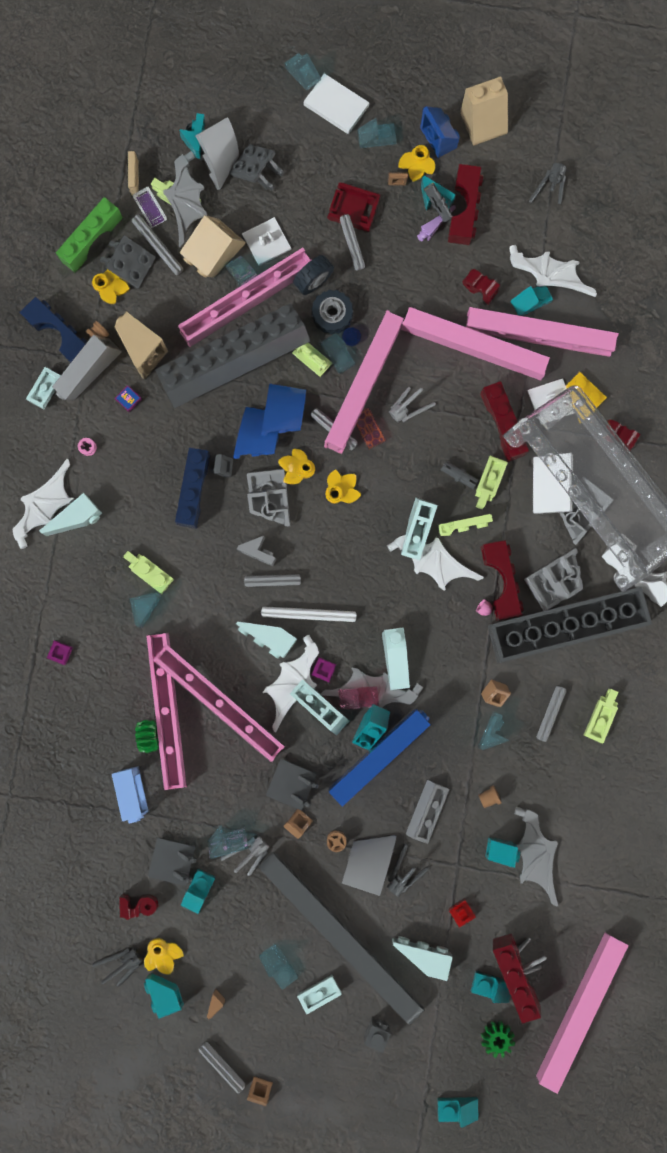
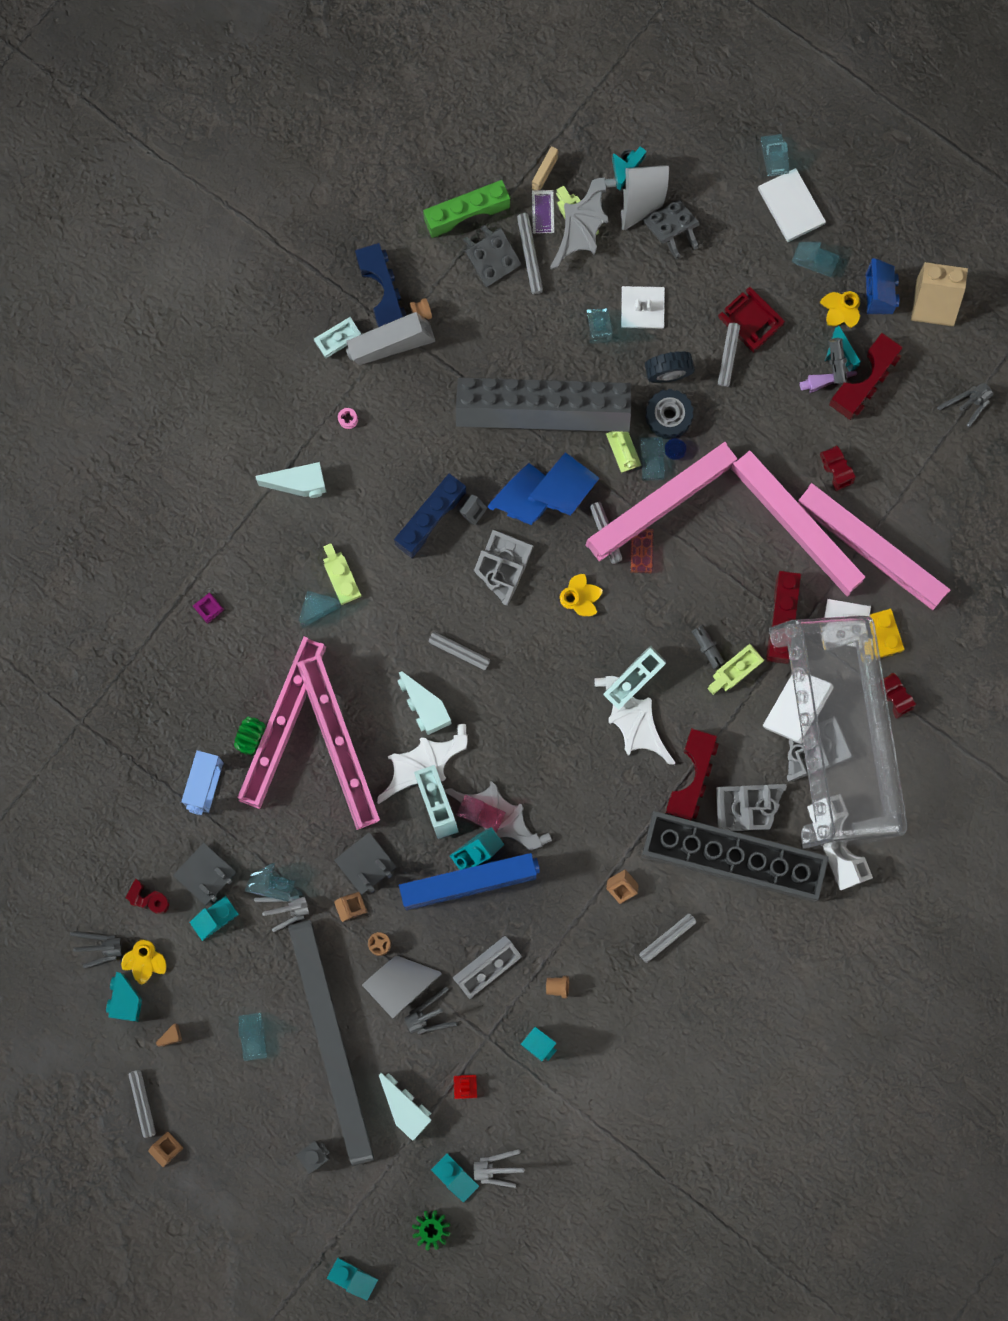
camera: 30 degrees right, 5 degrees down
(42, 505) = (272, 452): white animal -> none
(112, 287) = (462, 272): yellow plate -> none
(128, 398) = (415, 392): tile -> none
(141, 343) = (457, 345): tan slope -> none
(211, 246) = (583, 284): tan slope -> none
(243, 298) = (586, 353): bright pink tile -> none
(252, 549) = (456, 608): light grey slope -> none
(293, 466) = (544, 547): yellow plate -> none
(310, 614) = (477, 704): white axle -> none
(319, 994) = (278, 1085): light aqua plate -> none
(324, 669) = (461, 768): magenta tile -> none
(396, 658) = (540, 795): light aqua slope -> none
(397, 178) = (812, 313): medium nougat slope -> none
(399, 412) = (682, 550): light grey plant -> none
(463, 525) = (683, 699): yellowish green hinge -> none
(484, 608) = (659, 795): bright pink hinge -> none
(489, 737) = (591, 926): clear light blue slope -> none
(511, 967) = (480, 1195): dark red arch -> none
(531, 300) = (882, 509): teal slope -> none
(536, 854) = (574, 1070): light grey animal -> none
(550, 271) = (918, 491): white animal -> none
(581, 1012) = (531, 1251): bright pink tile -> none
(602, 717) = (717, 969): yellowish green hinge -> none

